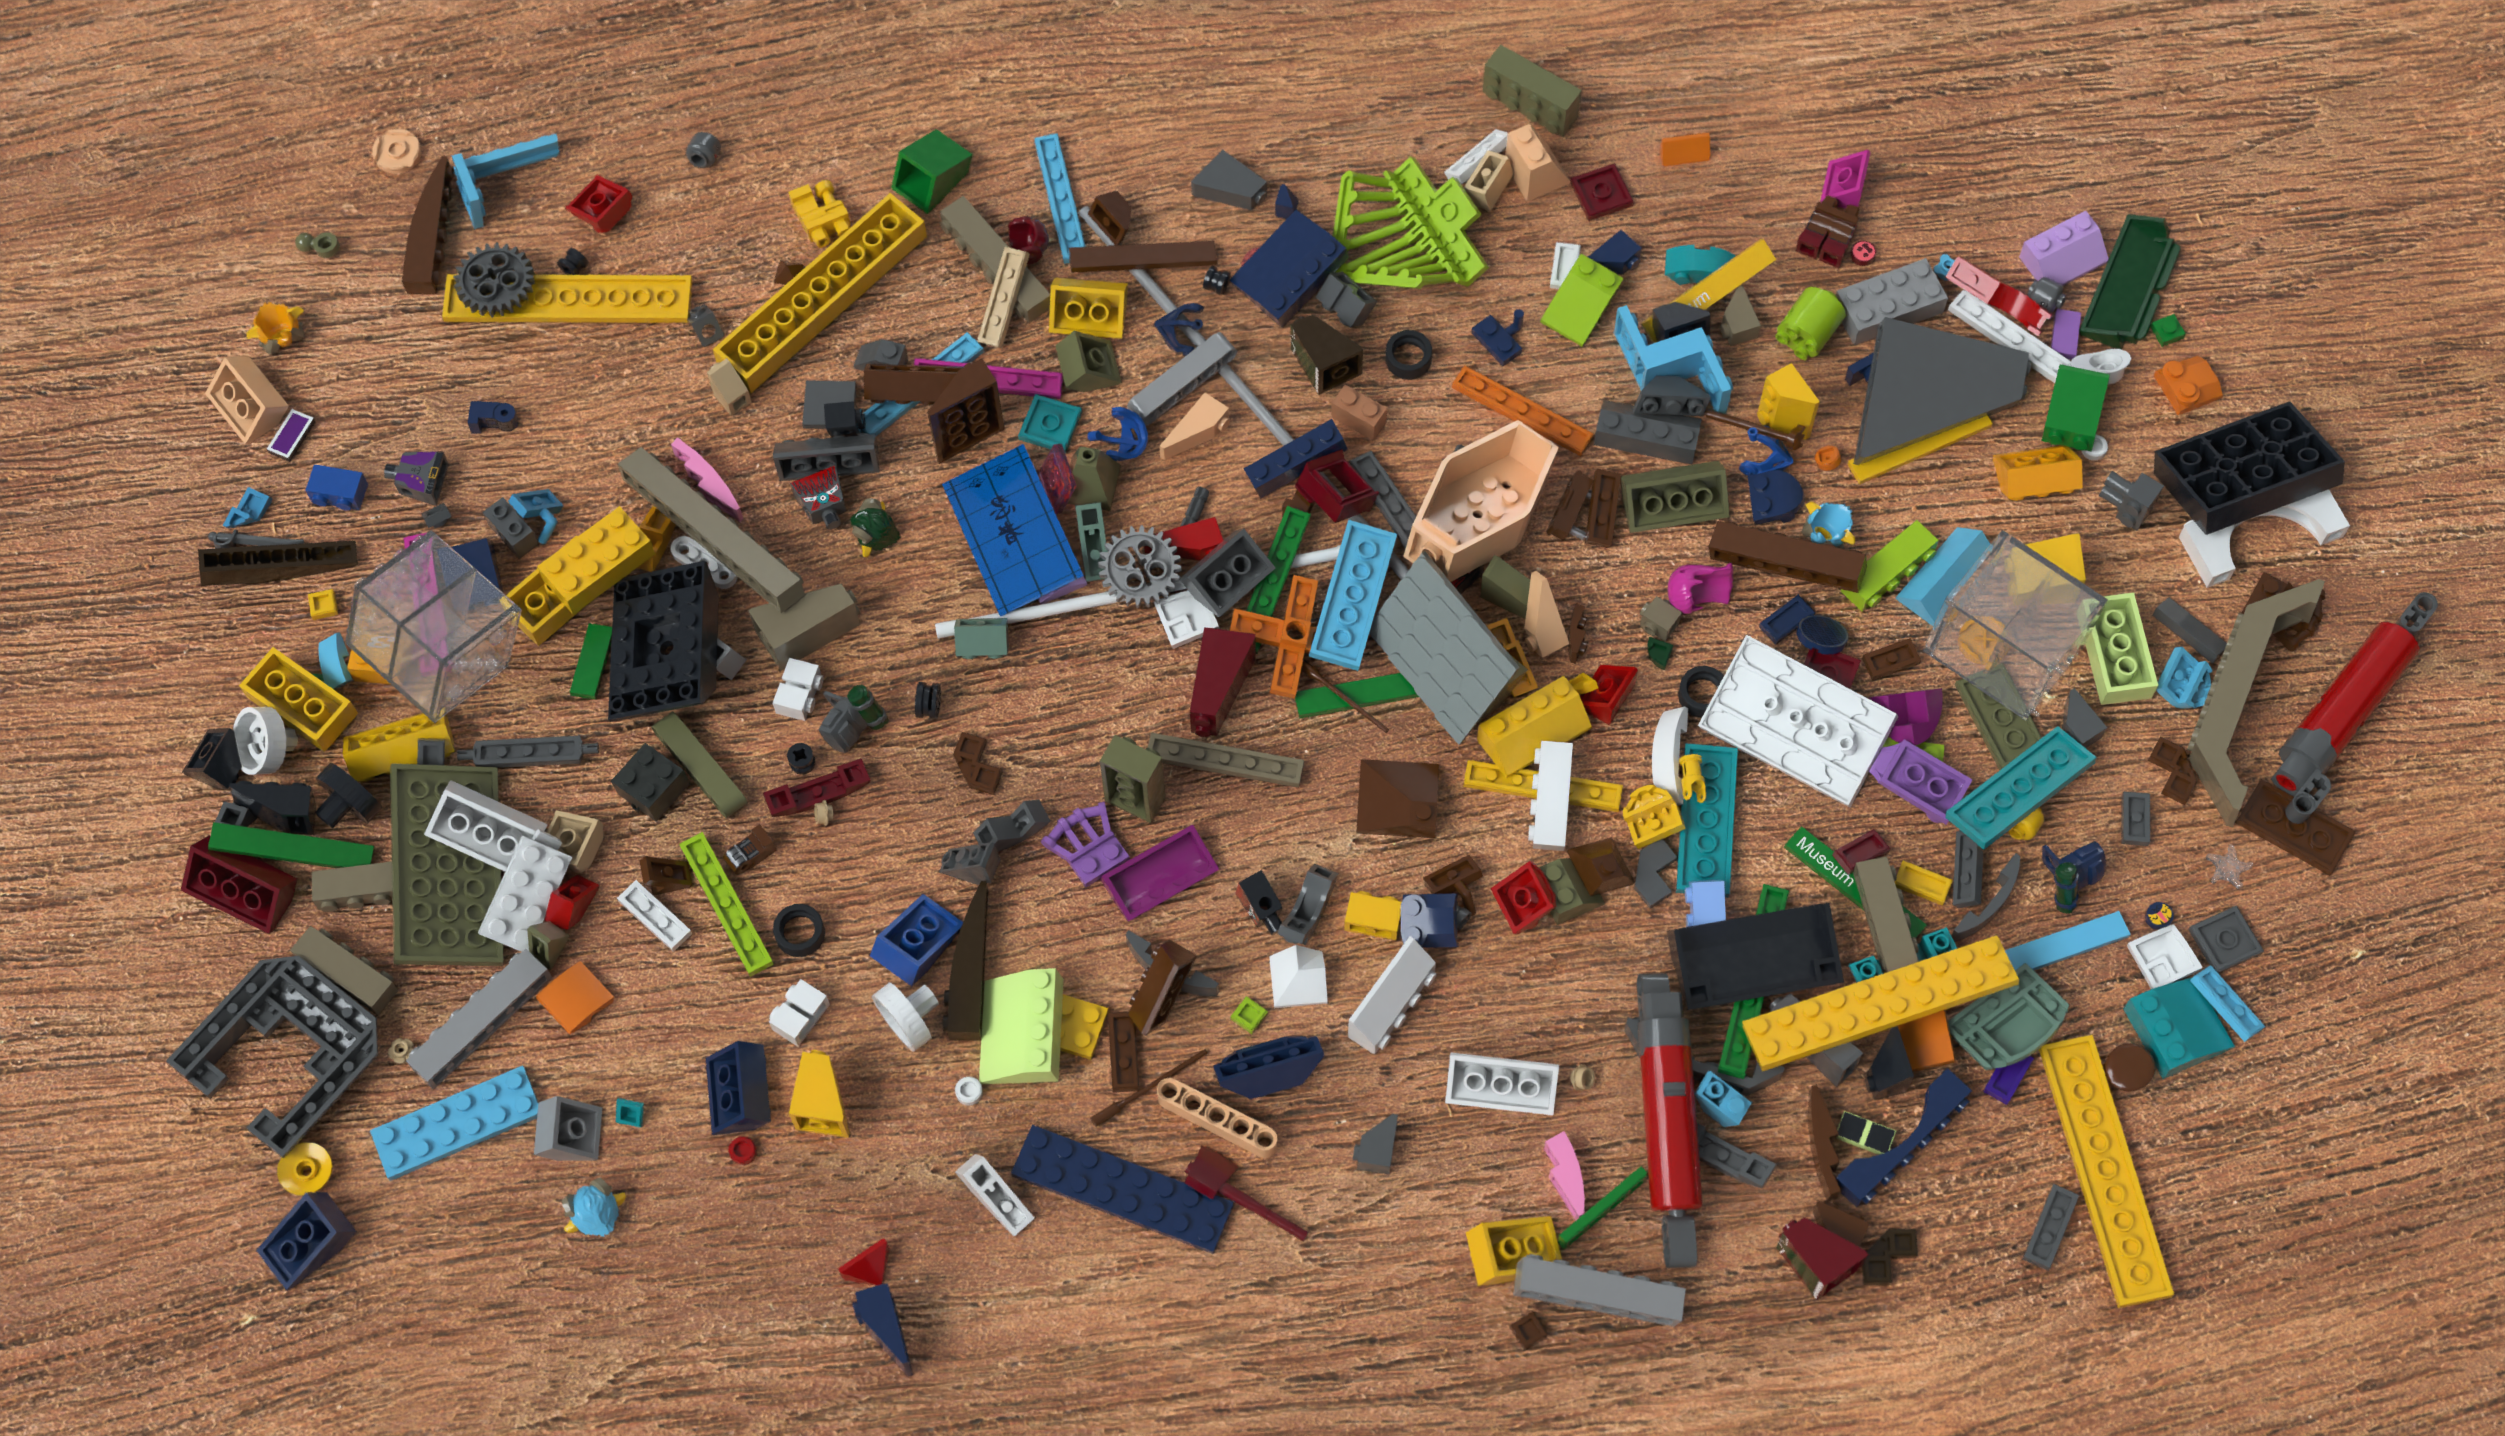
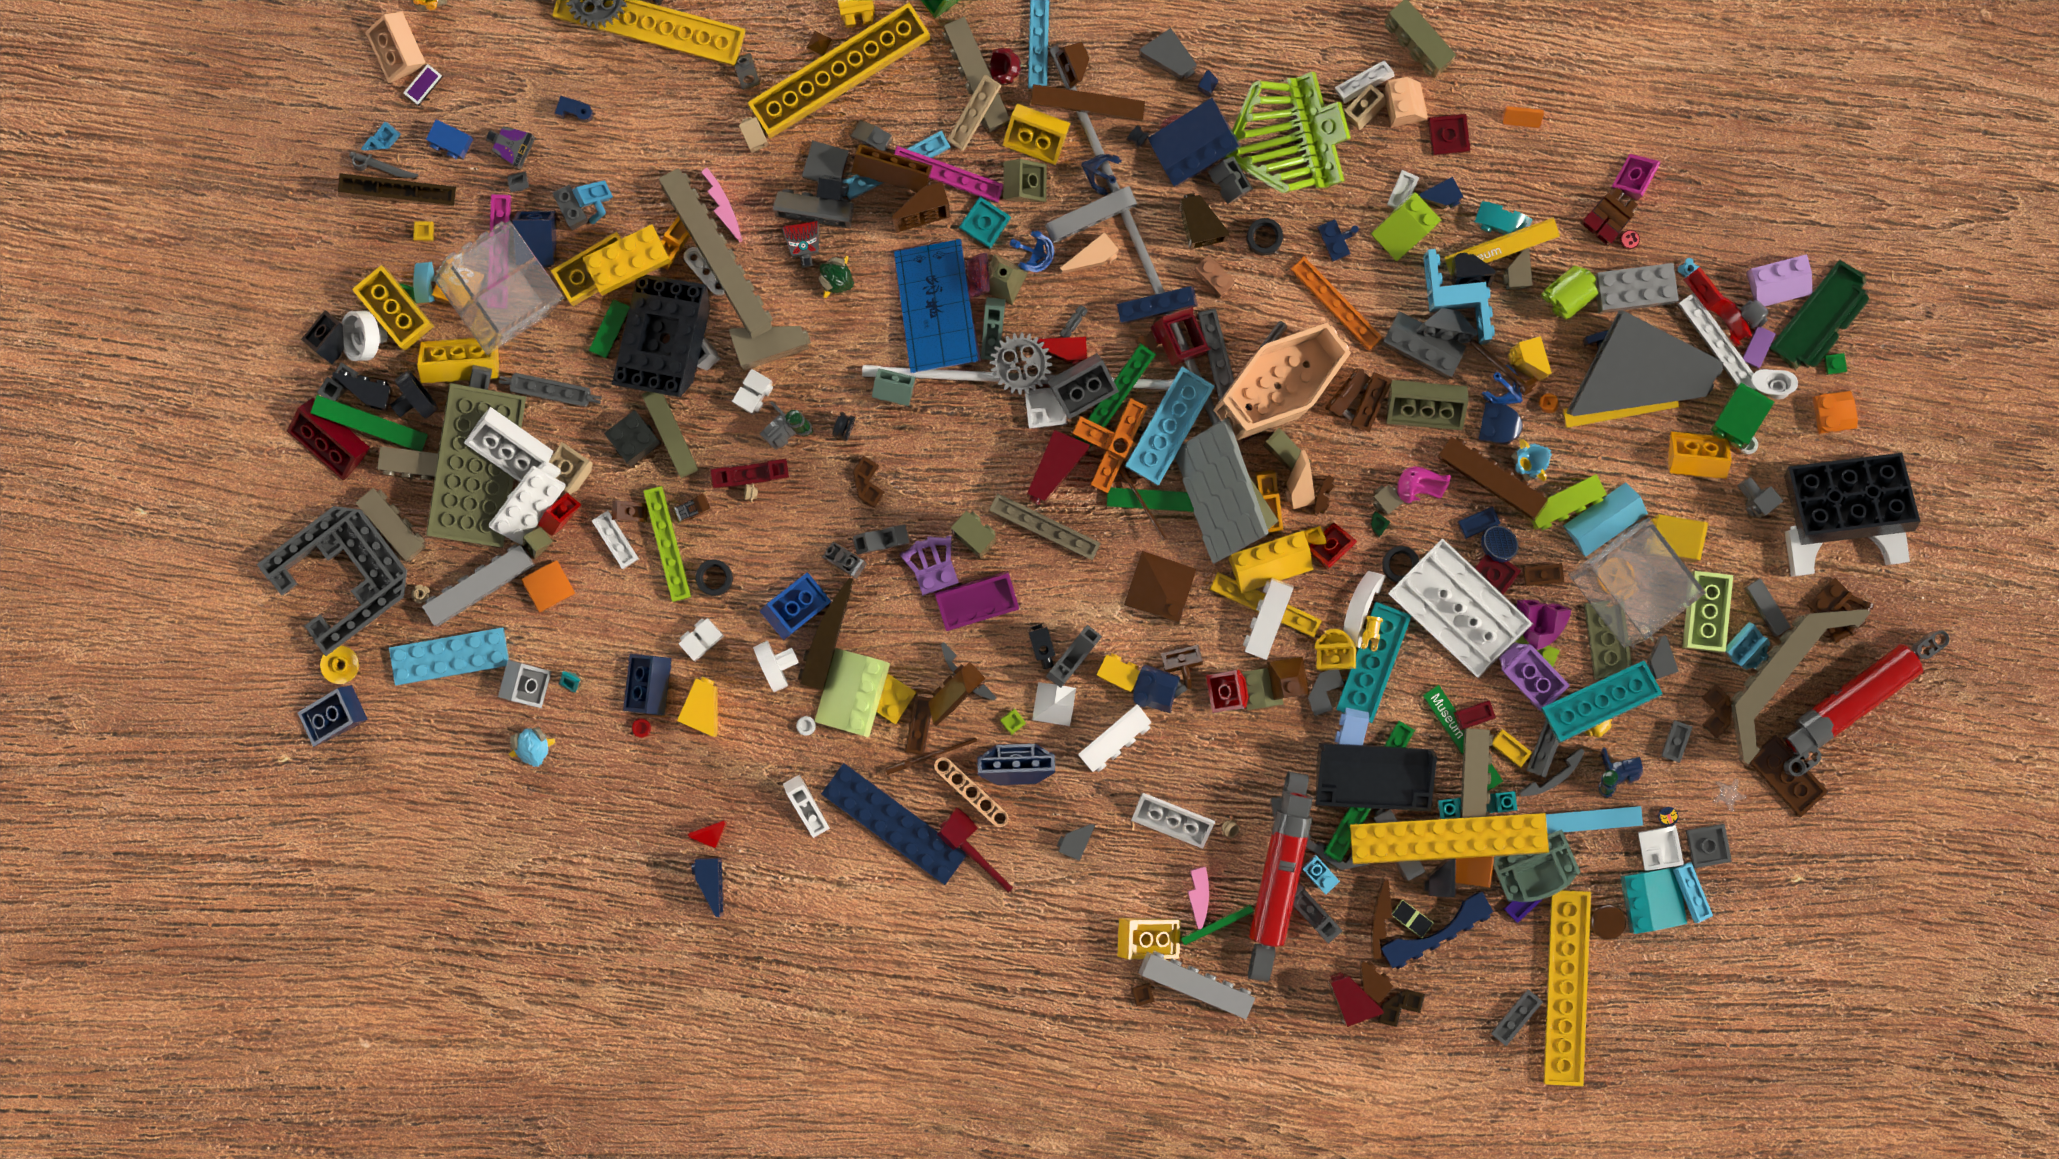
camera: 10 degrees right, 20 degrees up
(803, 764) = (745, 444): black wheel -> none

